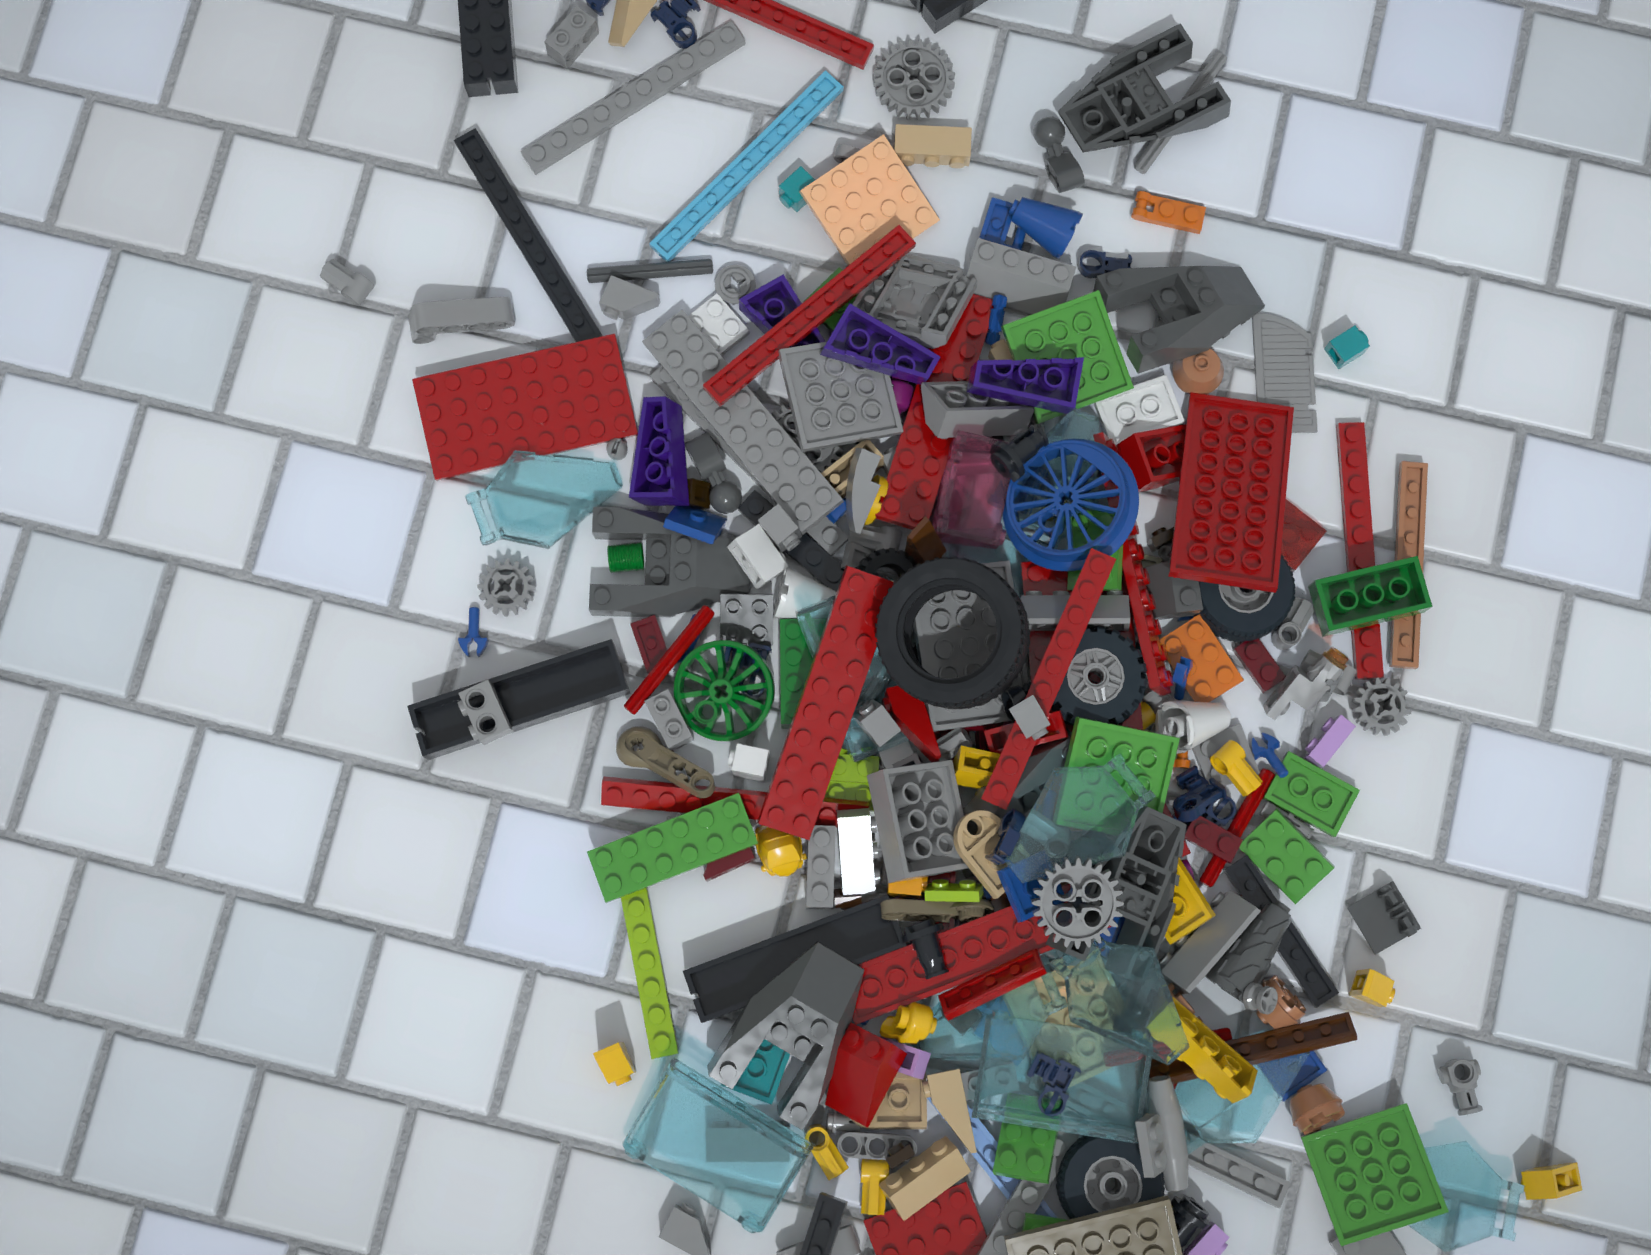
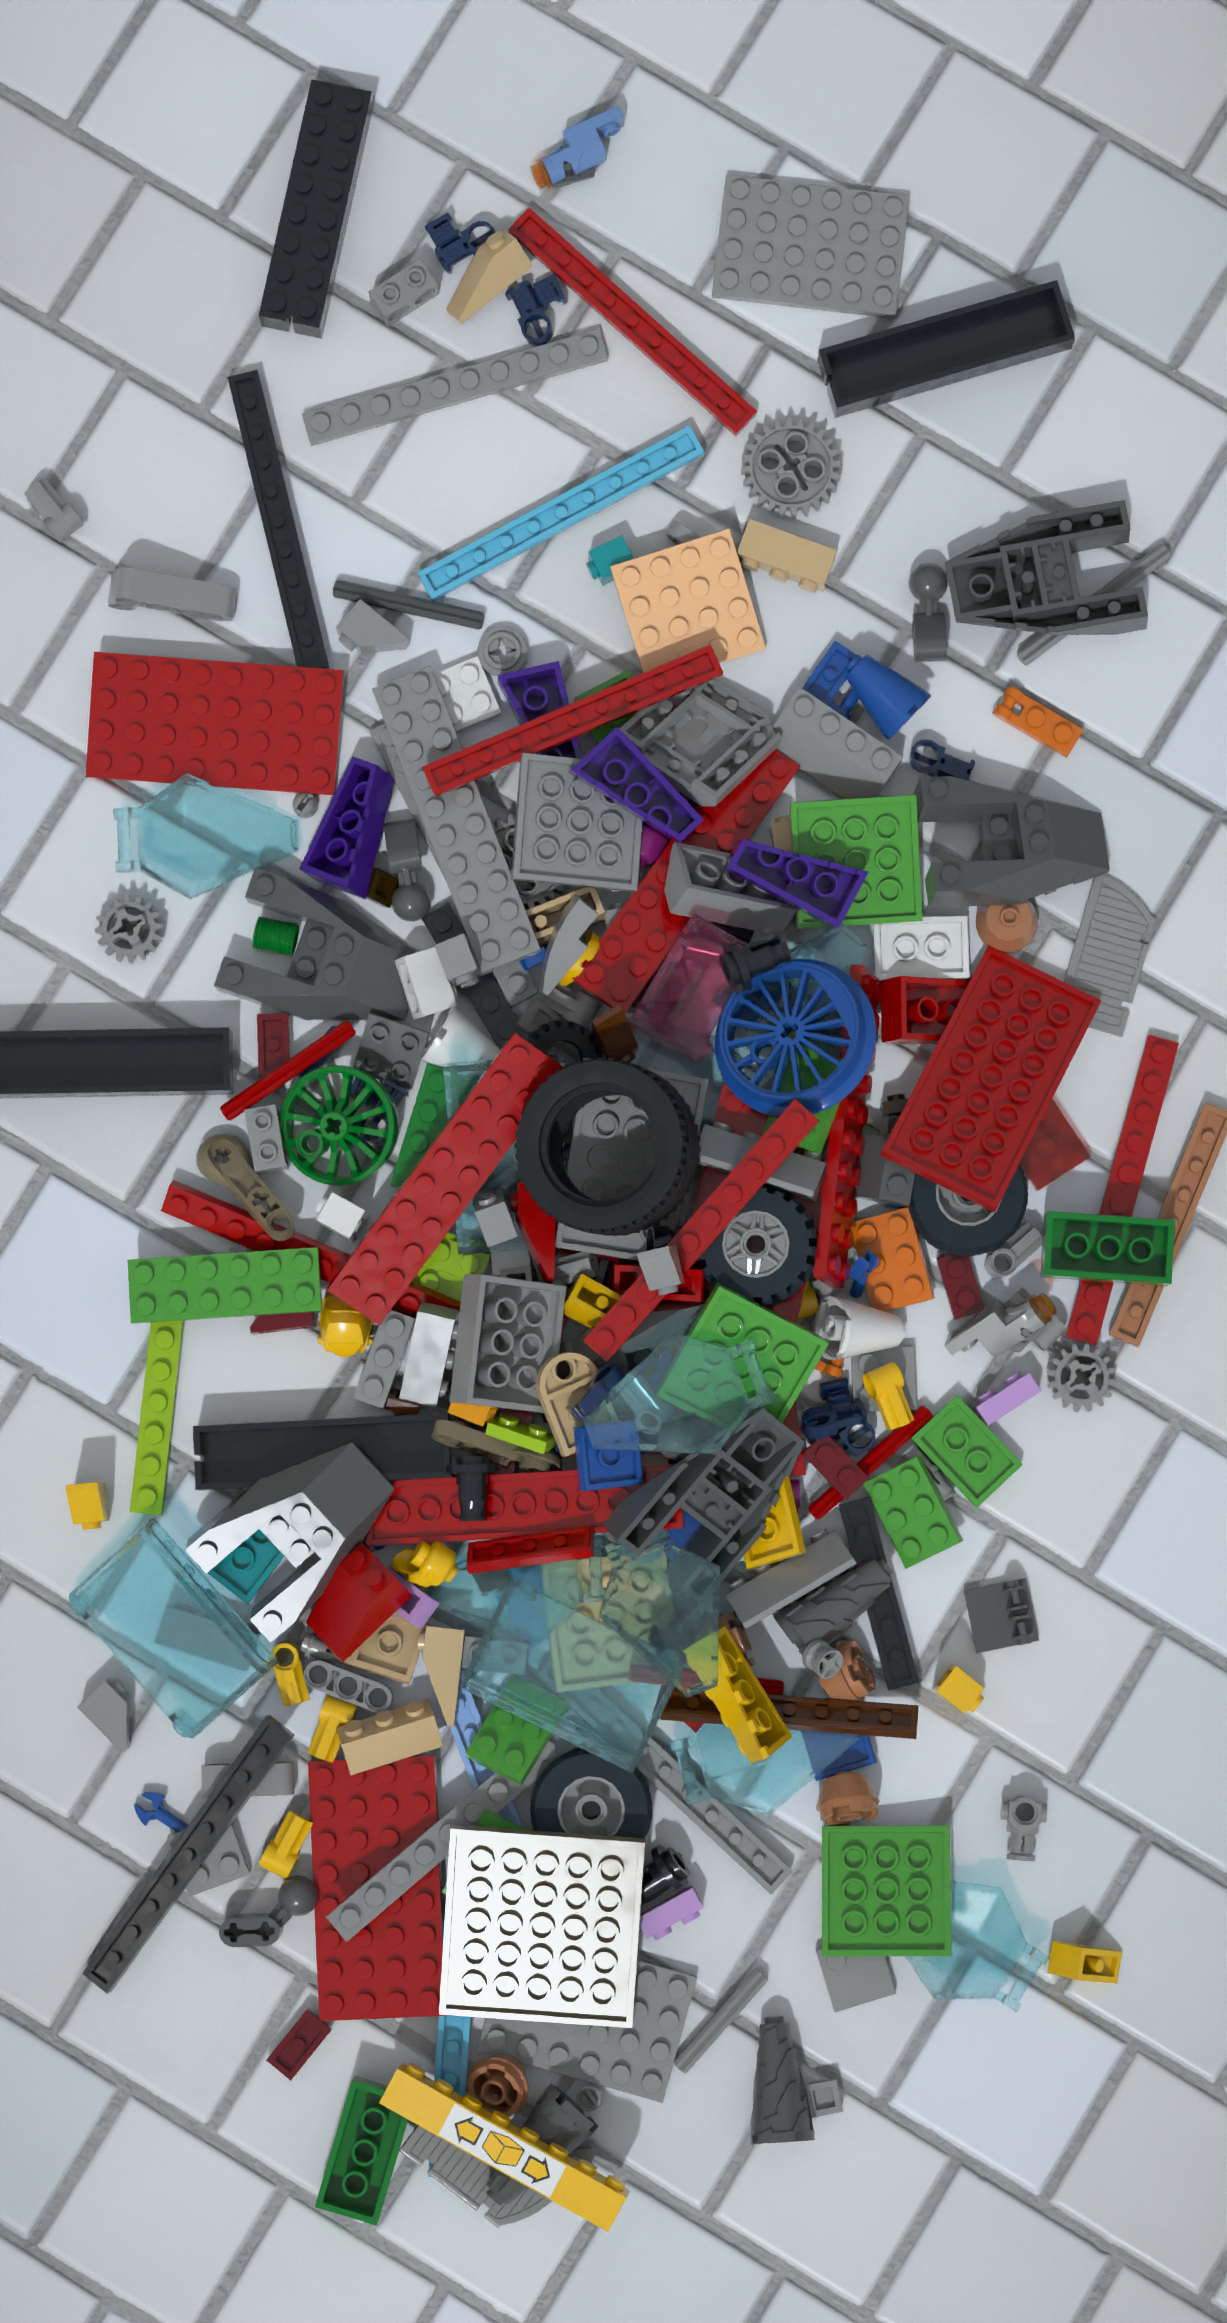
camera: 20 degrees right, 5 degrees up
(473, 634) = (76, 970): blue bar -> none
(490, 709) = (69, 1066): light grey brick -> none
(695, 523) = (366, 922): blue plate -> none
(899, 1154) = (367, 1701): dark brown plate -> none
(996, 319) = (791, 788): blue axle -> none
(1054, 1074) = (565, 1670): dark blue piece -> none
(1075, 927) = (638, 1517): light grey gear -> none
(1163, 1136) = (663, 1774): light grey plate -> none
(1269, 754) = (934, 1391): blue bar -> none
(1347, 346) = (1190, 948): teal brick -> none

